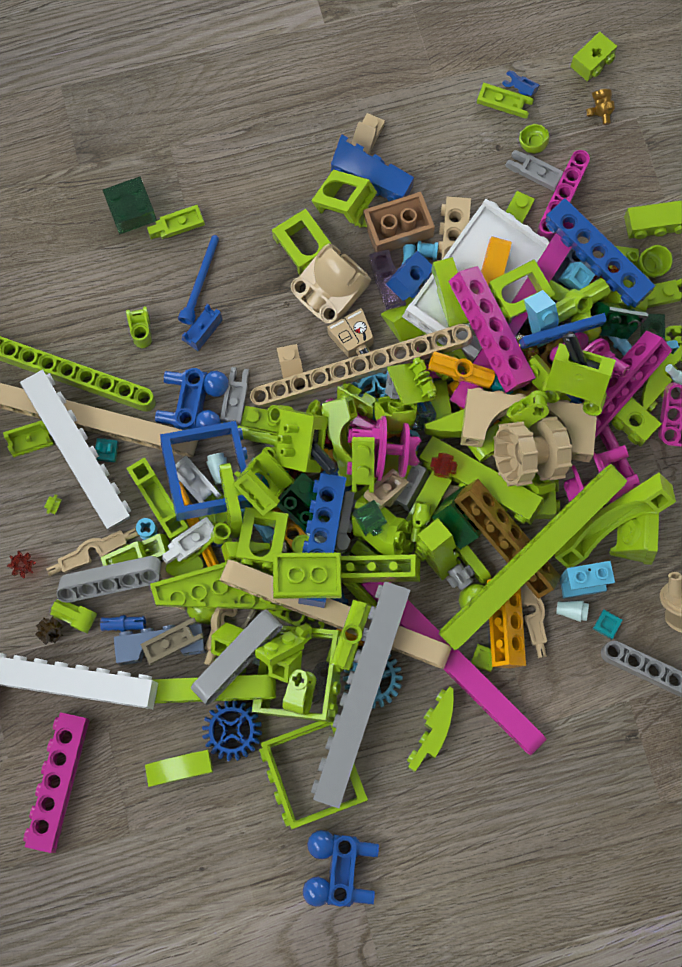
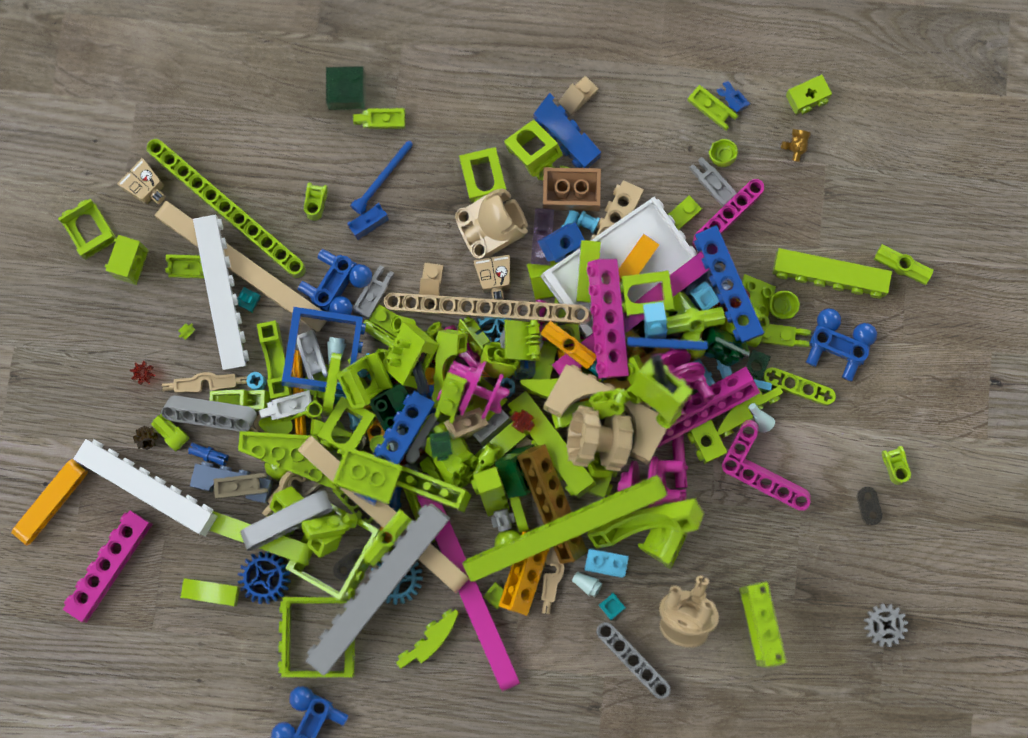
camera: 25 degrees right, 5 degrees up
(299, 694) = (327, 570): lime piece -> none

